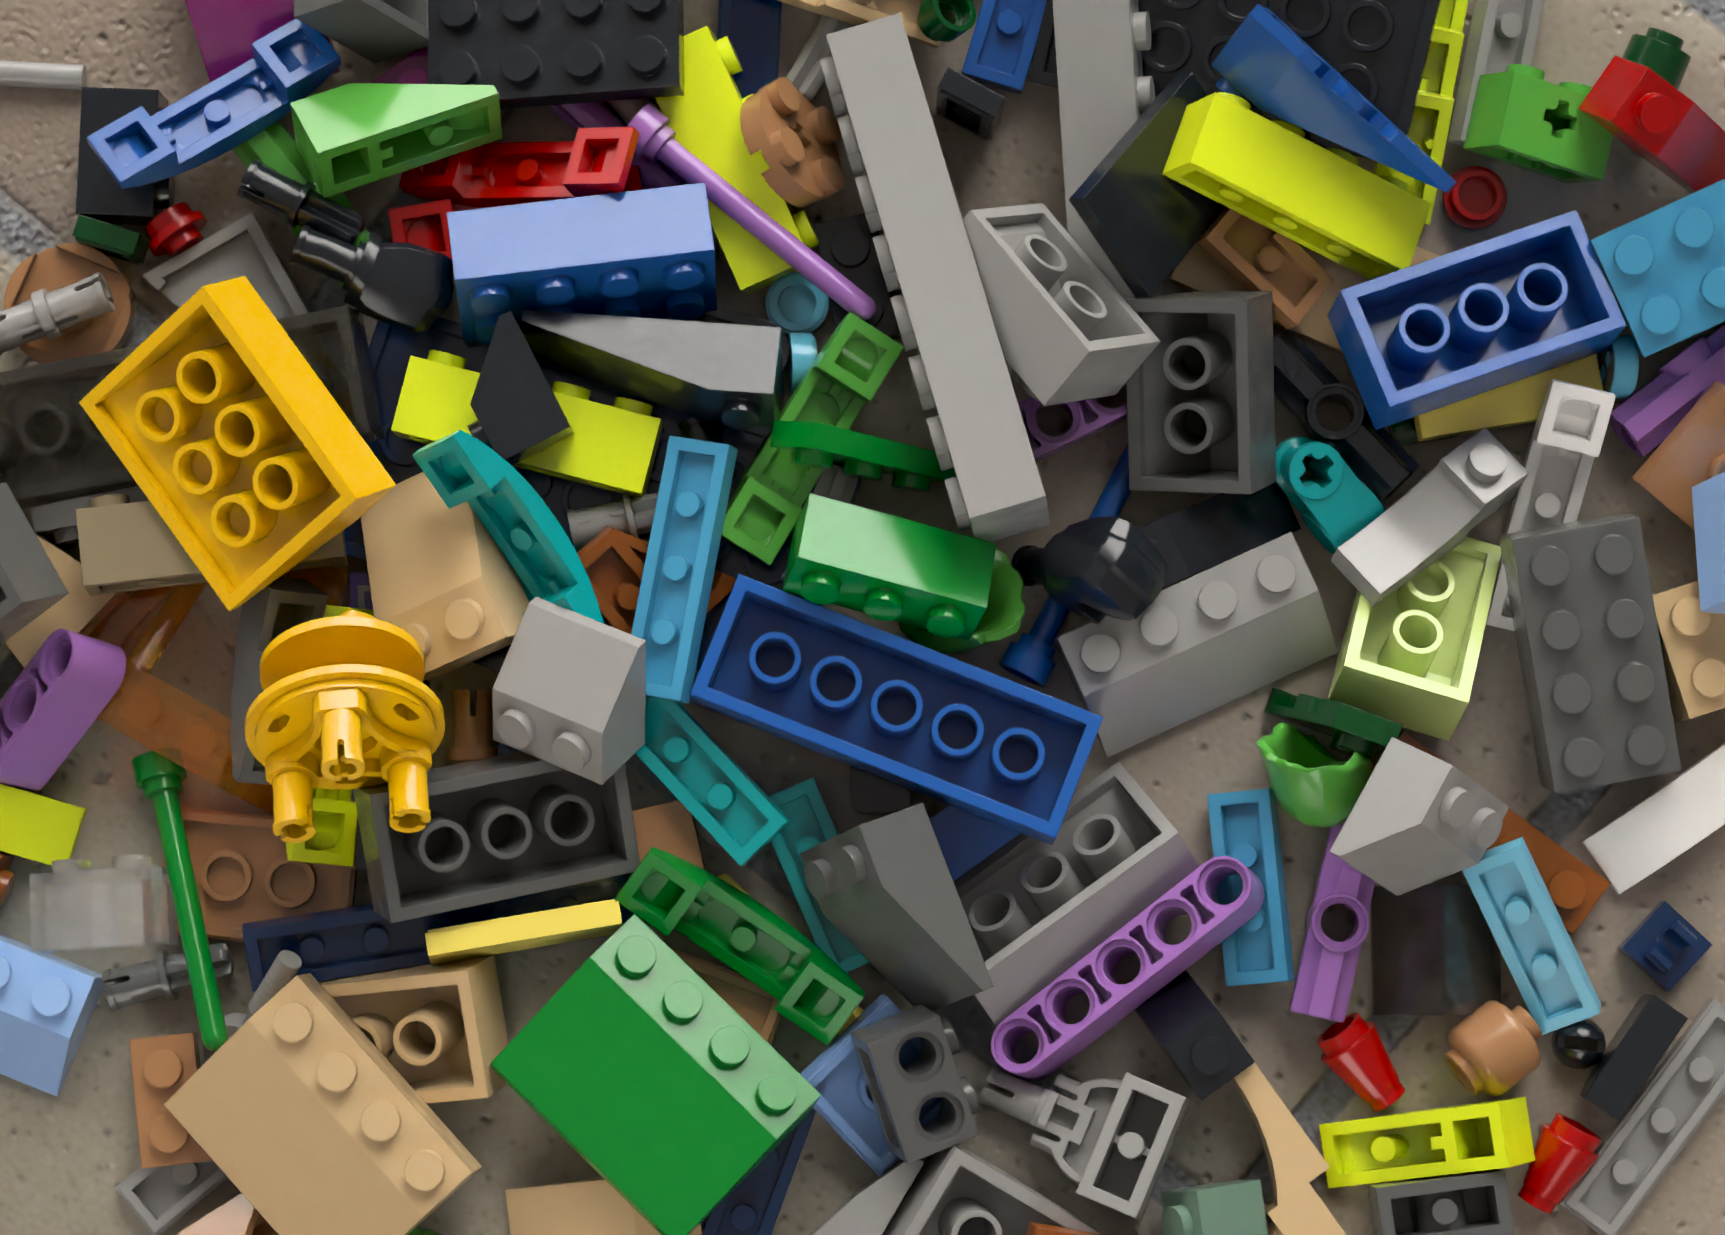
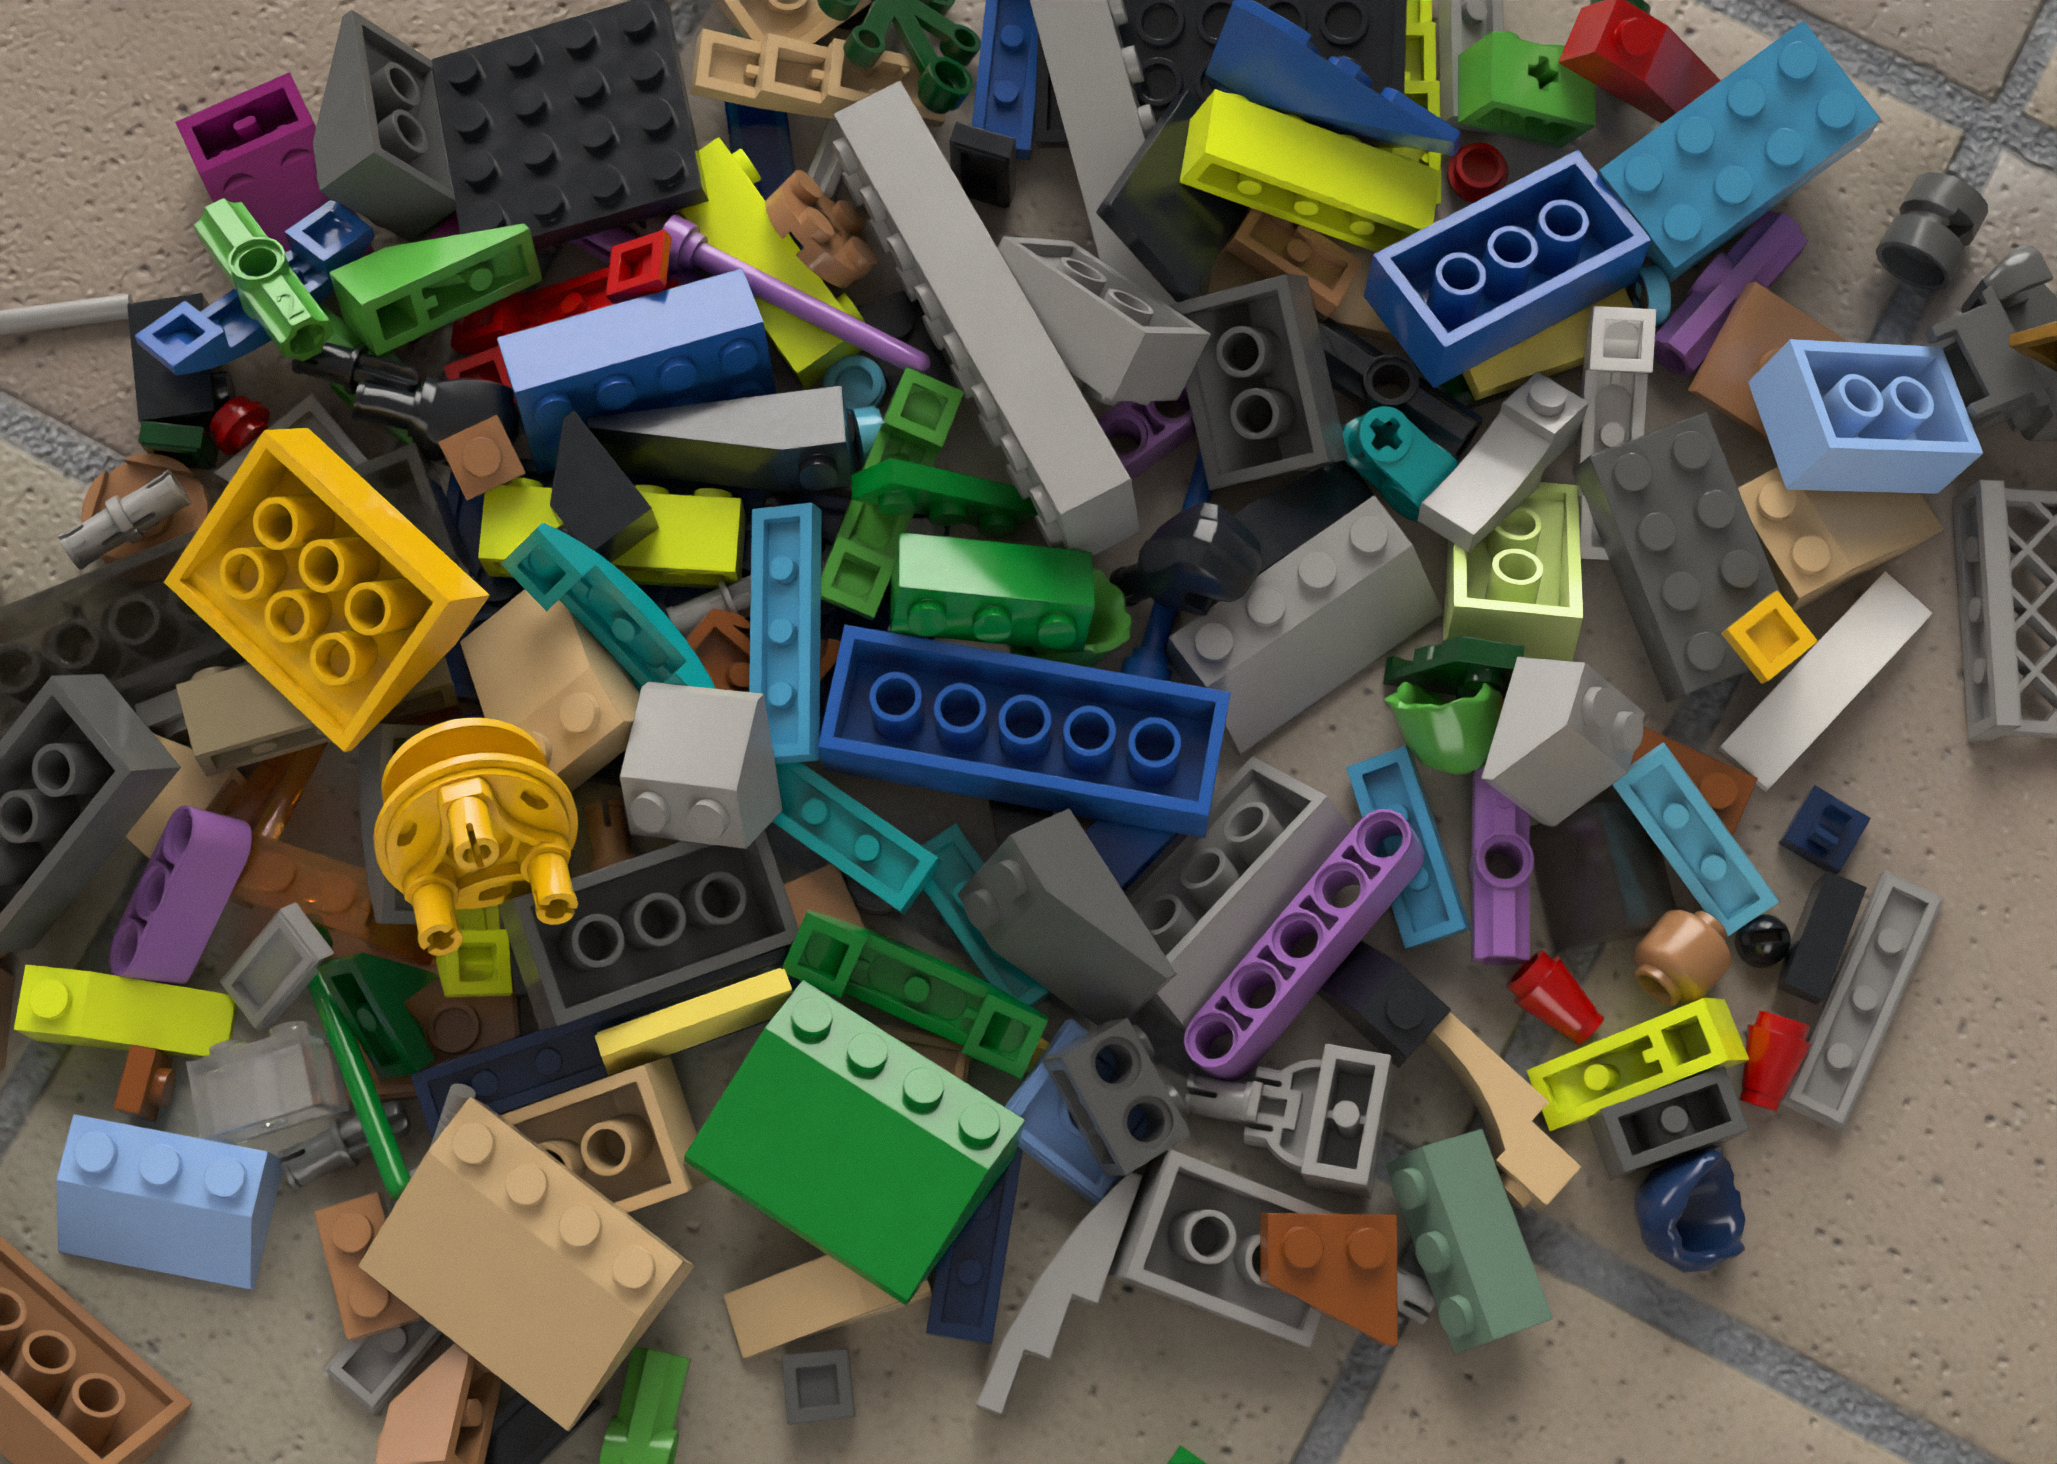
camera: 10 degrees left, 10 degrees down
(129, 795) = (276, 966): none -> light grey tile
(218, 857) = (372, 1001): none -> dark green slope
(232, 126) = (263, 279): none -> bright green piece
(411, 332) = (482, 457): none -> medium nougat plate
(1646, 760) = (1769, 637): none -> yellow plate

